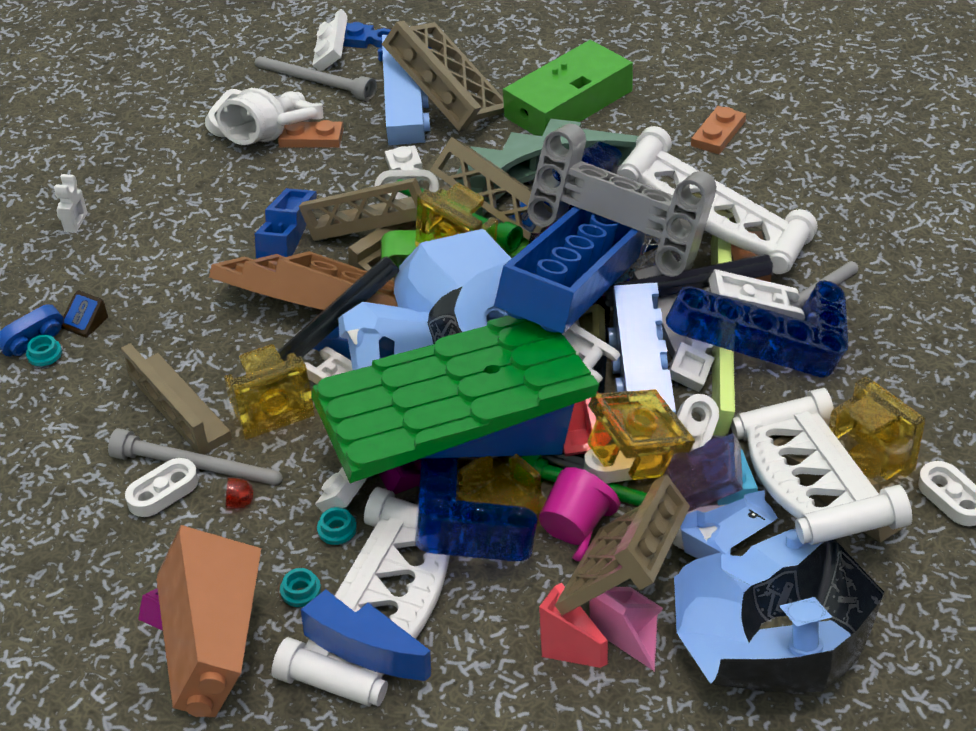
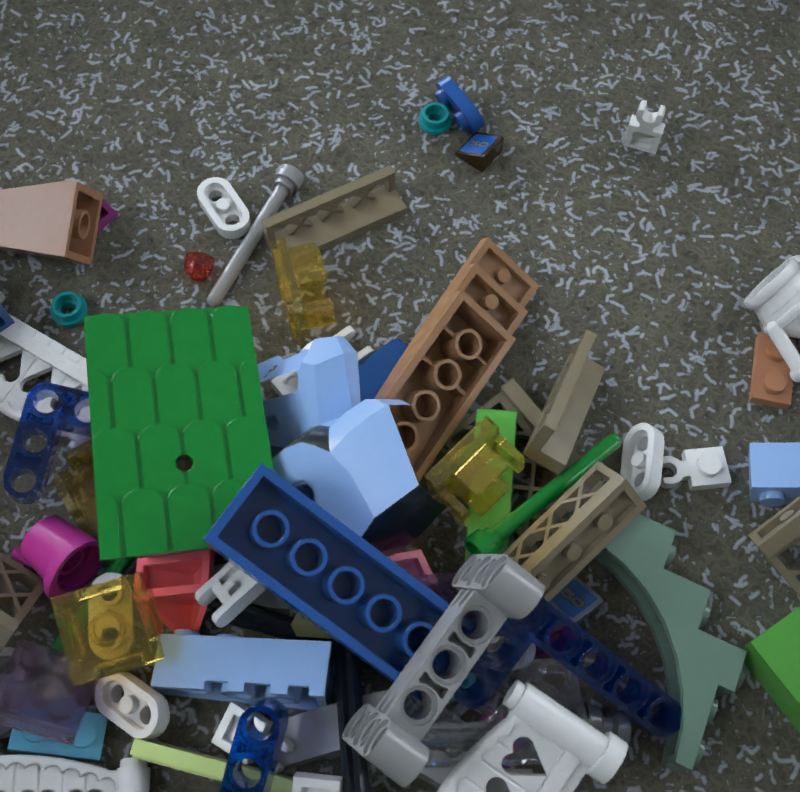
camera: 95 degrees right, 20 degrees up
(283, 224) = (617, 336): blue slope -> none
(328, 319) = (380, 345): black axle -> none

